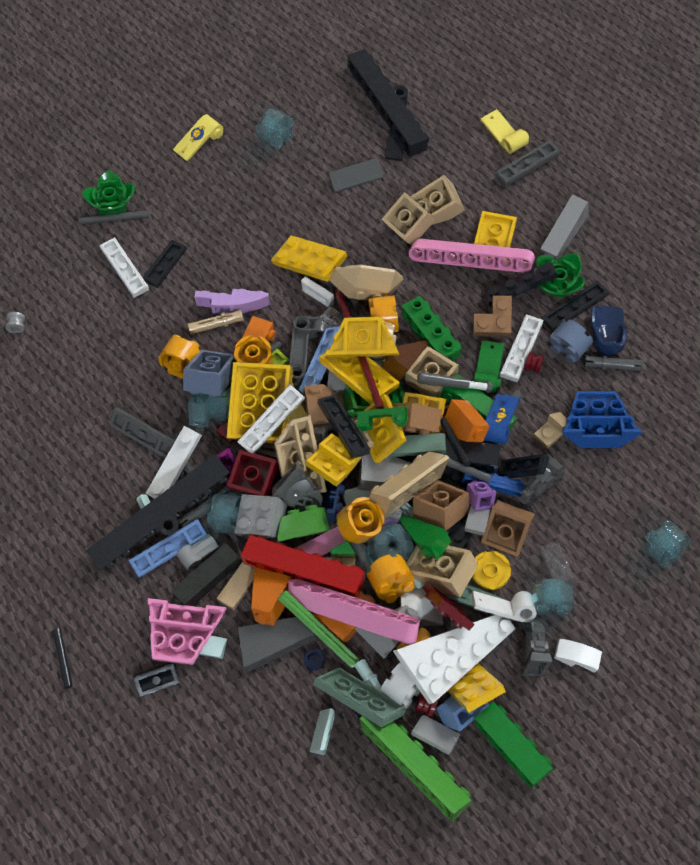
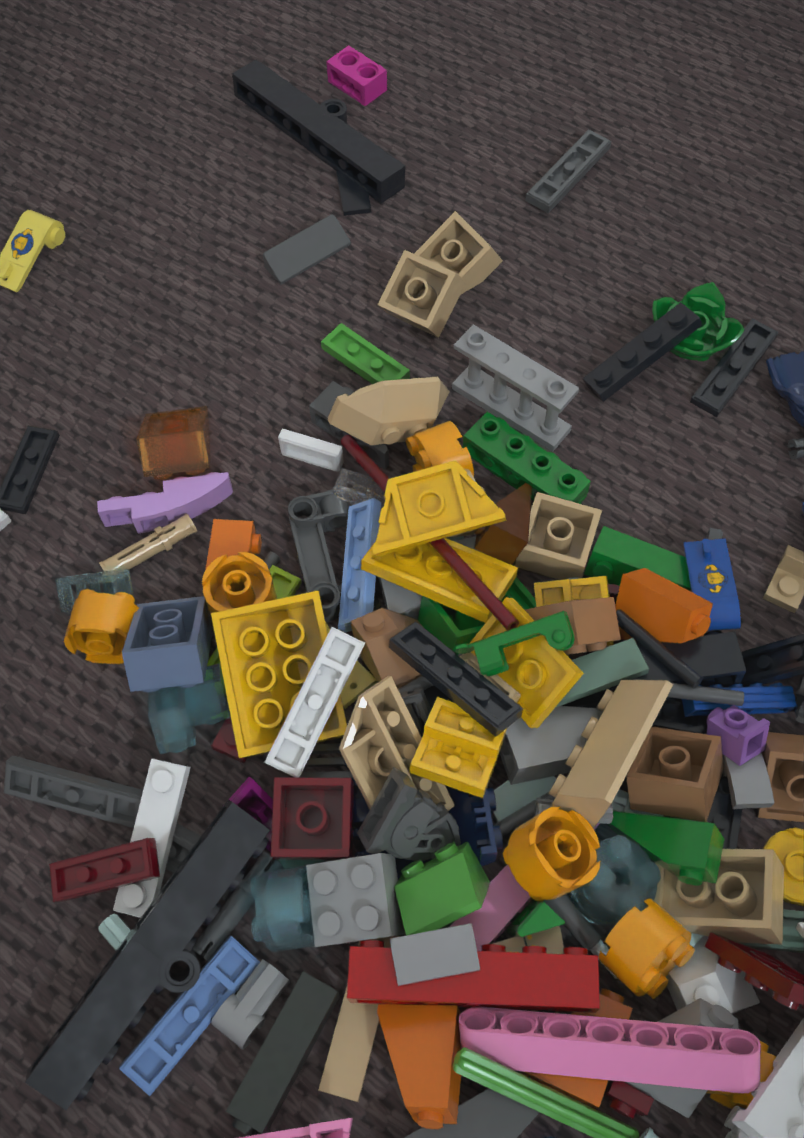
camera: 20 degrees left, 0 degrees up
(146, 472) = (104, 870): none -> dark red tile
(192, 334) = (112, 580): none -> clear light blue slope
(246, 269) = (175, 442): none -> clear orange slope
(275, 128) = (151, 204): clear light blue brick -> none
(287, 547) = (435, 954): none -> light grey slope
(309, 258) = (279, 396): yellow plate -> none
(359, 644) = (628, 1099): none -> dark red plate
(365, 247) = (362, 356): none -> bright green plate
(423, 71) = (357, 75): none -> dark pink brick
(438, 286) = (524, 373): none -> light grey fence
(447, 381) = (595, 544): dark grey piece -> none
(479, 252) = (559, 317): bright pink beam -> none
(489, 364) = (643, 501): green door -> none
(495, 230) = (564, 292): yellow plate -> none
(496, 323) = (631, 419): medium nougat brick -> none
(504, 133) = (515, 137): light yellow door -> none
(521, 347) = (683, 457): white plate -> none
(534, 362) = (714, 473): dark red wheel -> none
(565, 227) = (673, 247): light grey slope -> none
(570, 340) = (760, 421): sand blue brick -> none

